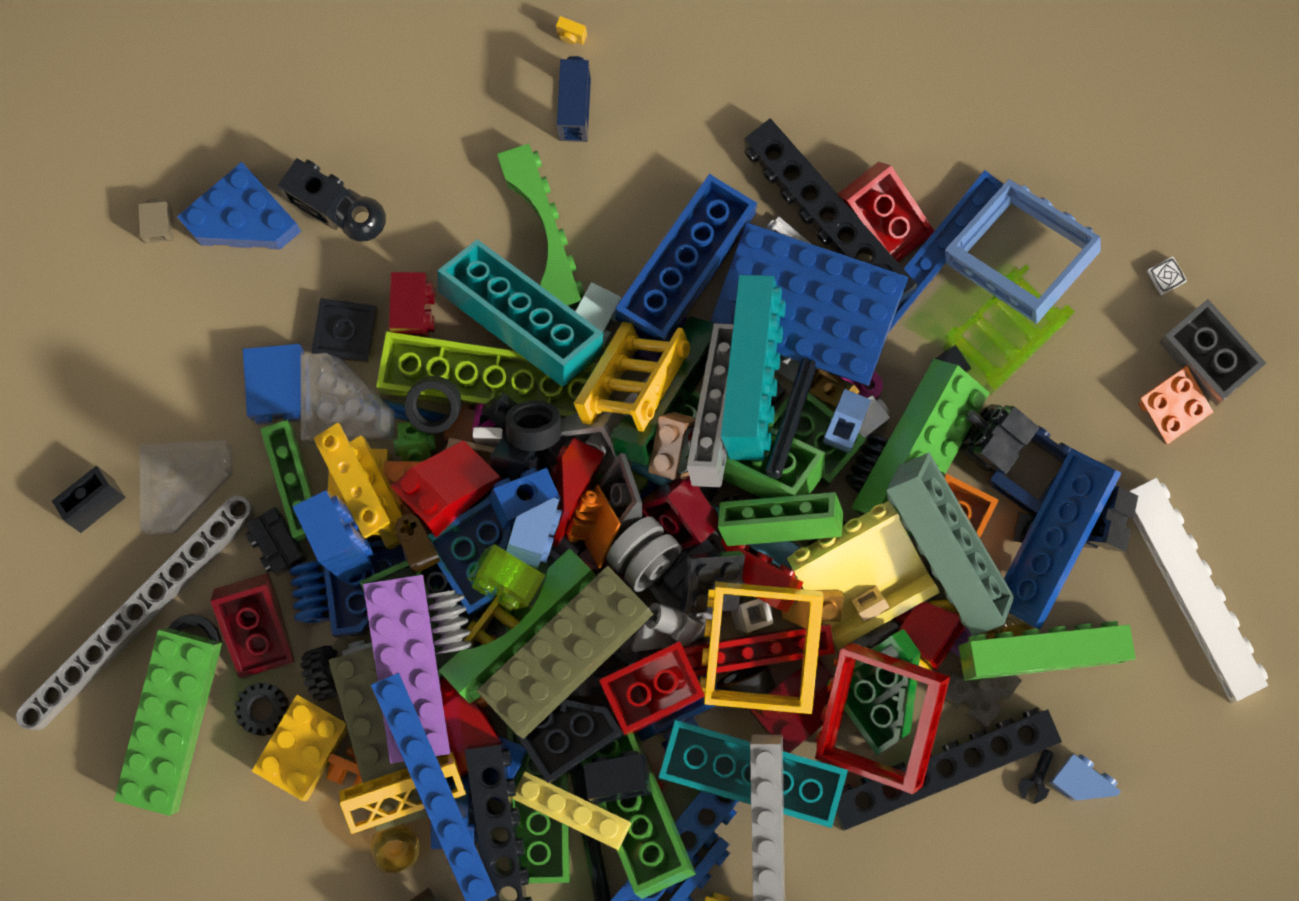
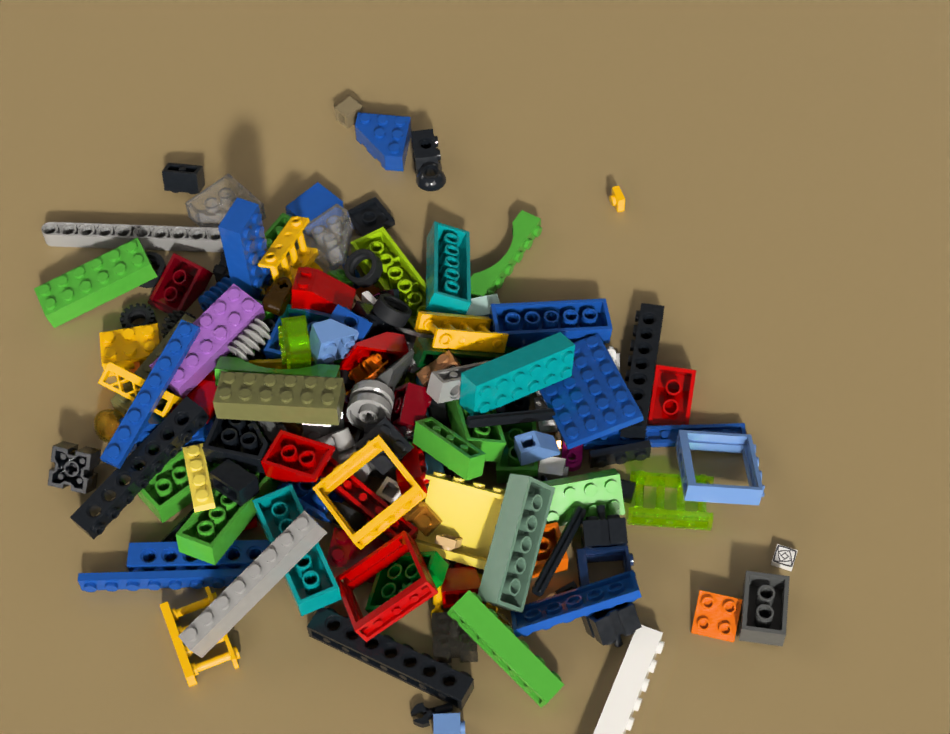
camera: 45 degrees right, 25 degrees down
(411, 304) = (408, 228): dark red brick -> none
(574, 99) = (582, 220): dark blue window -> none
(909, 332) = (619, 454): none -> black plate
(986, 503) = (558, 551): none -> black axle

